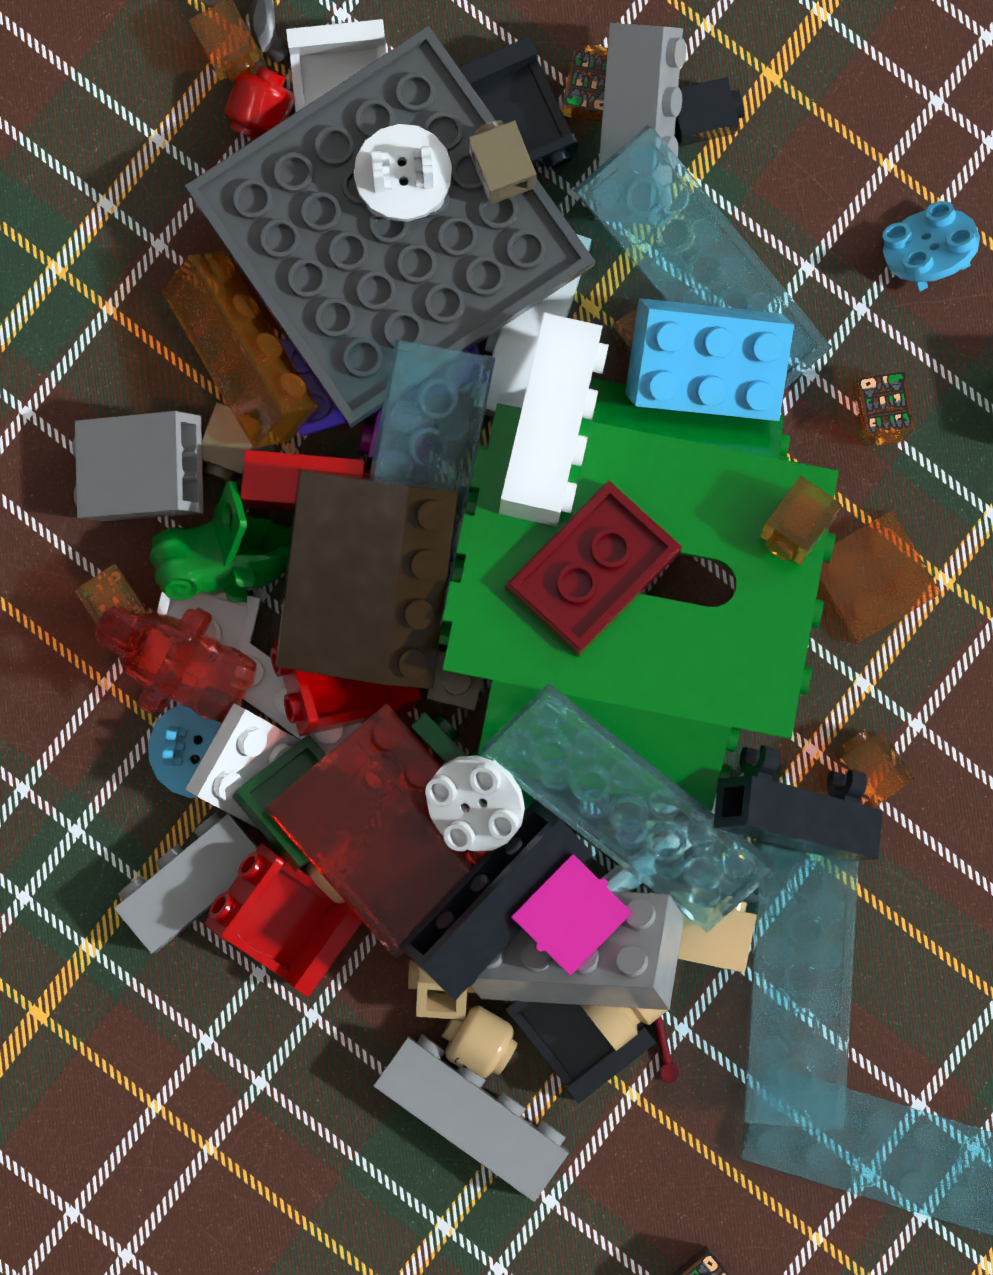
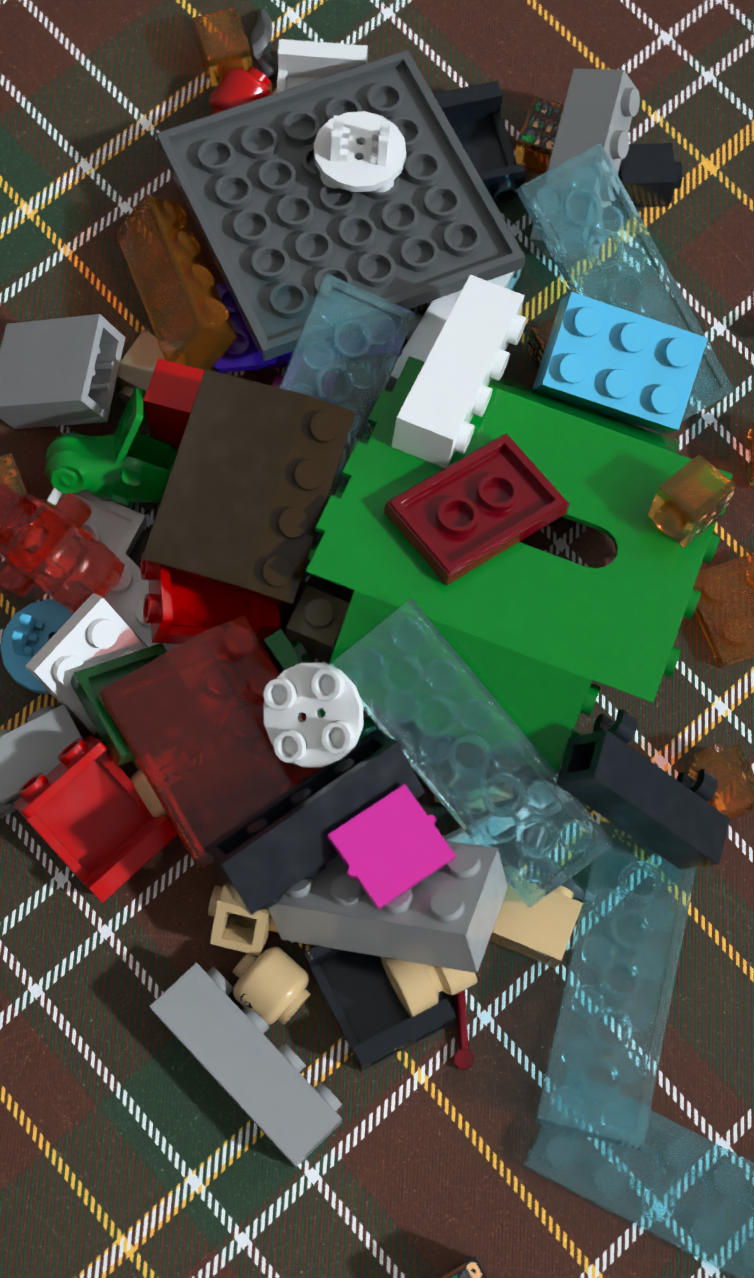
camera: 10 degrees right, 15 degrees down
(501, 161) = (454, 155): dark tan brick -> none

